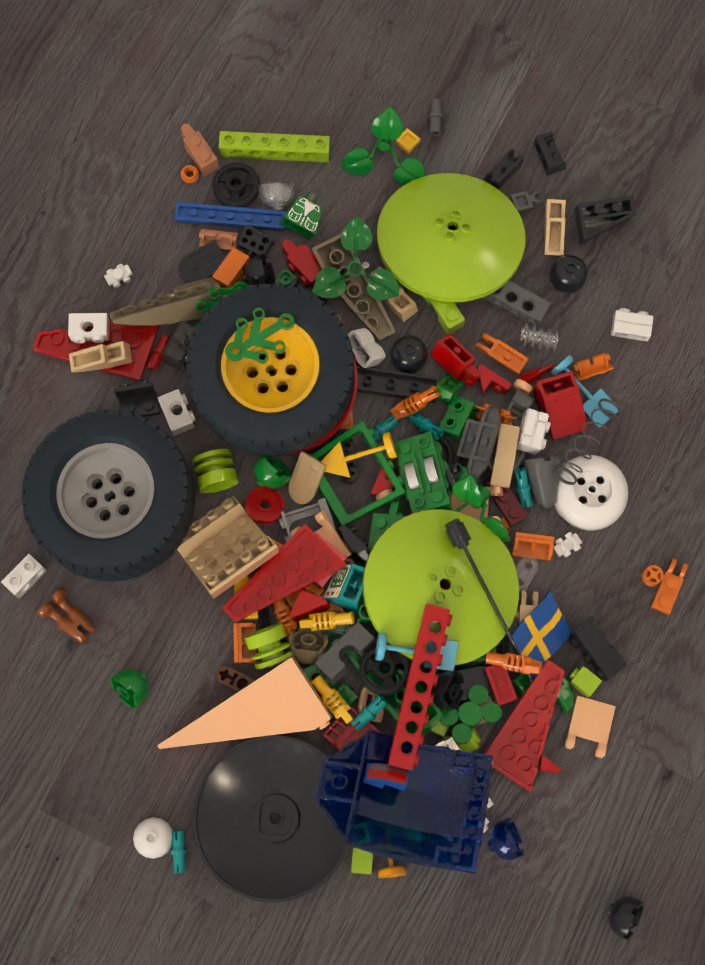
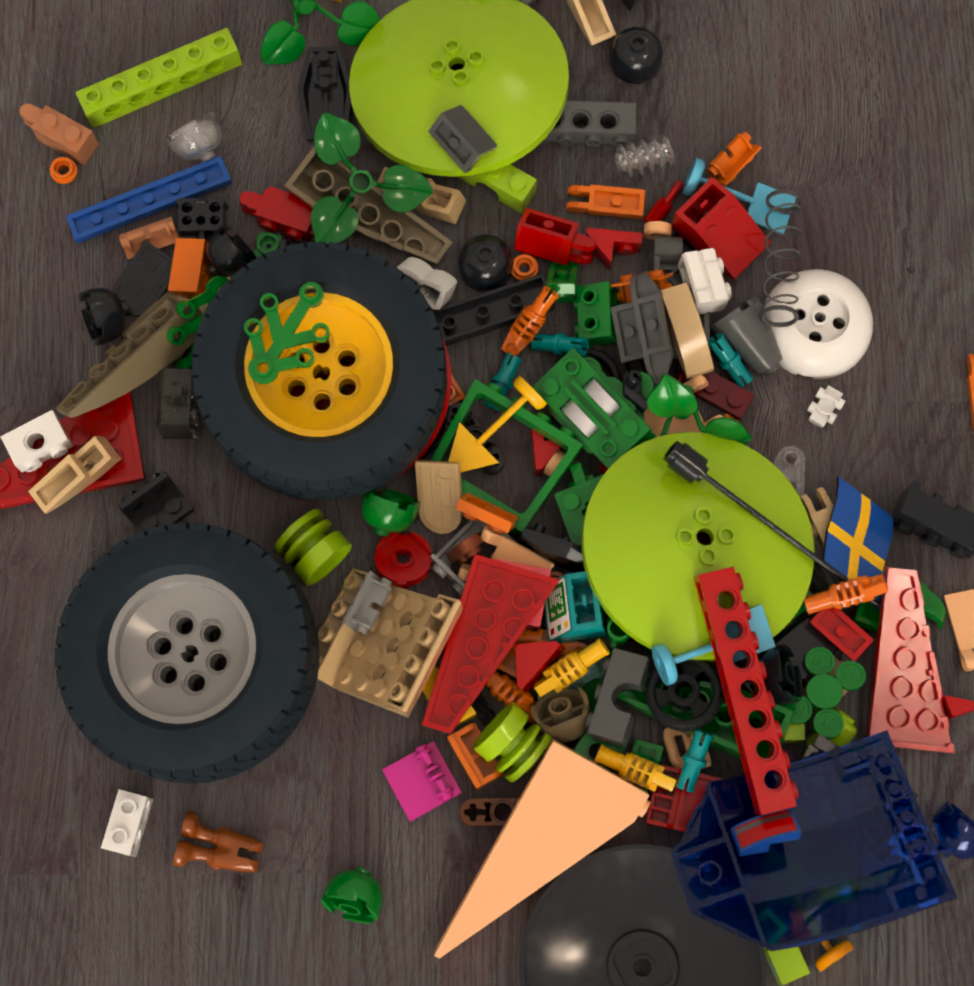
camera: 25 degrees left, 0 degrees up
(118, 274) = (39, 349): white piece -> none
(156, 357) = (150, 433): red axle -> none
(167, 272) = (103, 314): none -> black cylinder
(177, 423) = (204, 483): white brick -> none
(206, 641) = (421, 781): none -> dark pink hinge
(221, 524) = (360, 614): none -> light grey hinge
(223, 177) = (150, 136): black wheel -> none
(302, 518) = (465, 549): none -> copper plate
(303, 216) = (248, 150): green torso -> none
(328, 505) = (479, 509): none -> orange plate
(369, 200) = (323, 87): none -> black piece
(431, 271) = (461, 137): none -> dark grey panel
(431, 363) = (526, 260): none -> orange plate
(533, 545) = (783, 430): orange hinge -> none
(584, 681) = (944, 571): lime brick -> none
(632, 325) = (753, 80): white brick -> none
(655, 573) = (960, 385): orange wheel -> none

